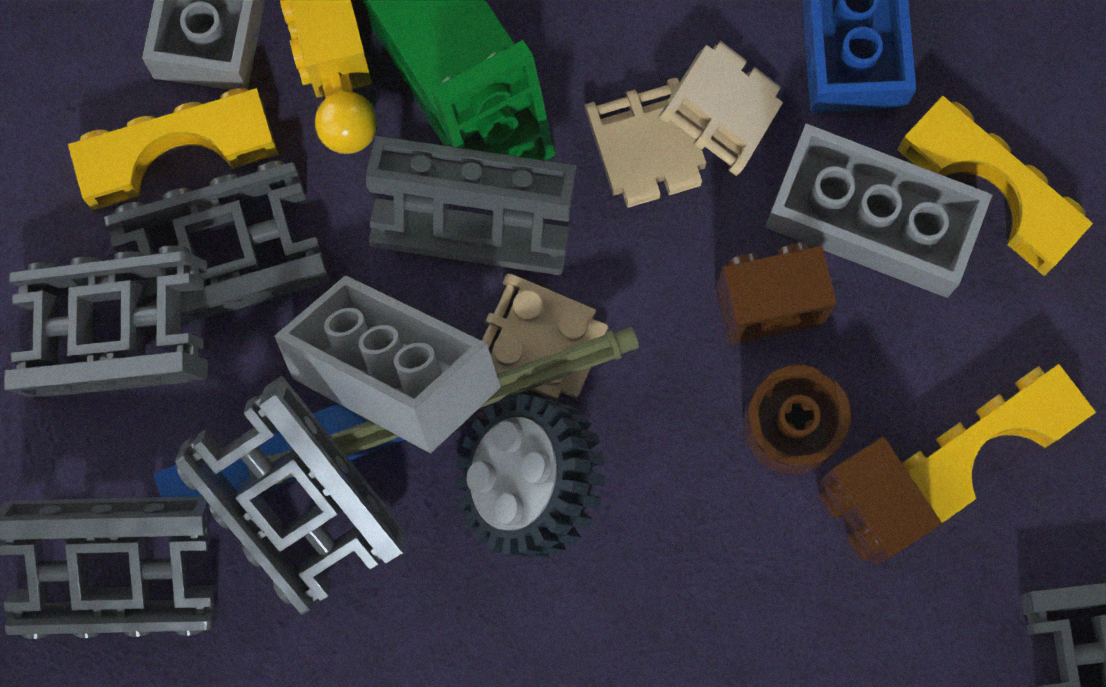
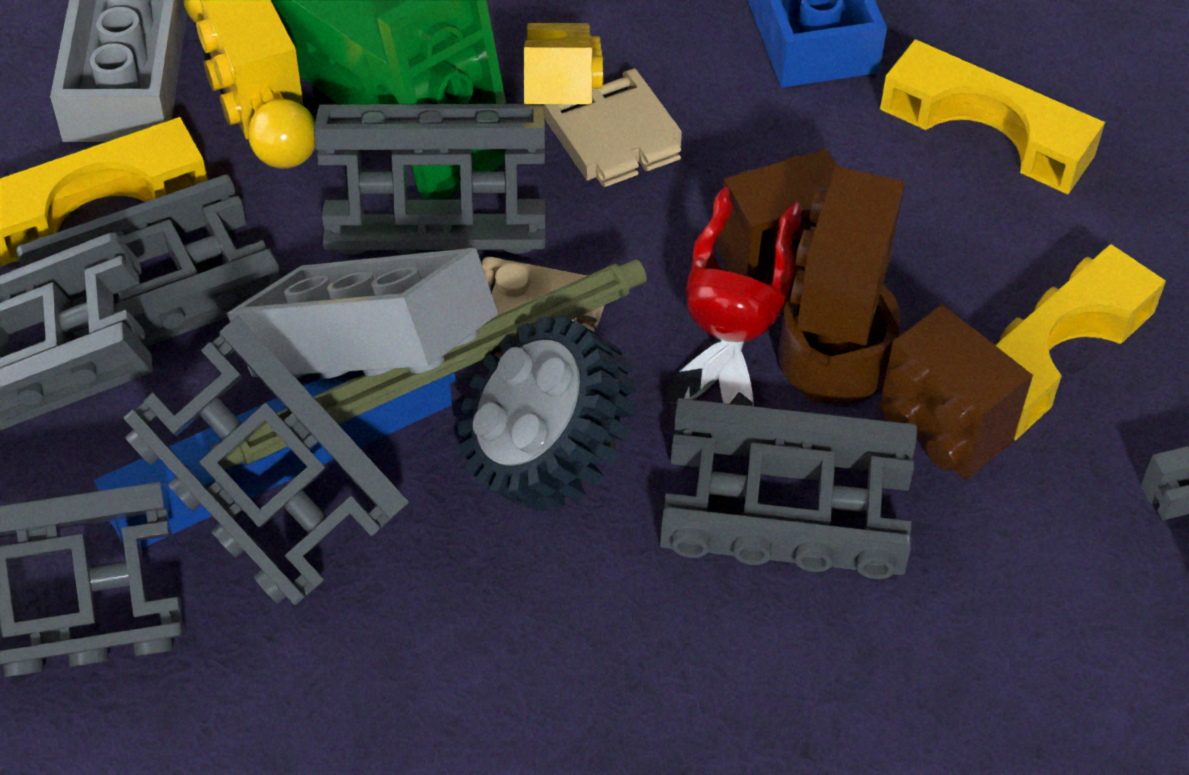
camera: 10 degrees left, 25 degrees down
(604, 121) = (561, 63): none -> yellow arch
(708, 383) = (731, 308): none -> red hair
(723, 105) = (687, 79): tan plate -> none
(734, 520) = (791, 447): none -> dark grey fence
(814, 383) = (846, 254): none -> reddish brown brick
(879, 211) = (887, 131): light grey brick -> none

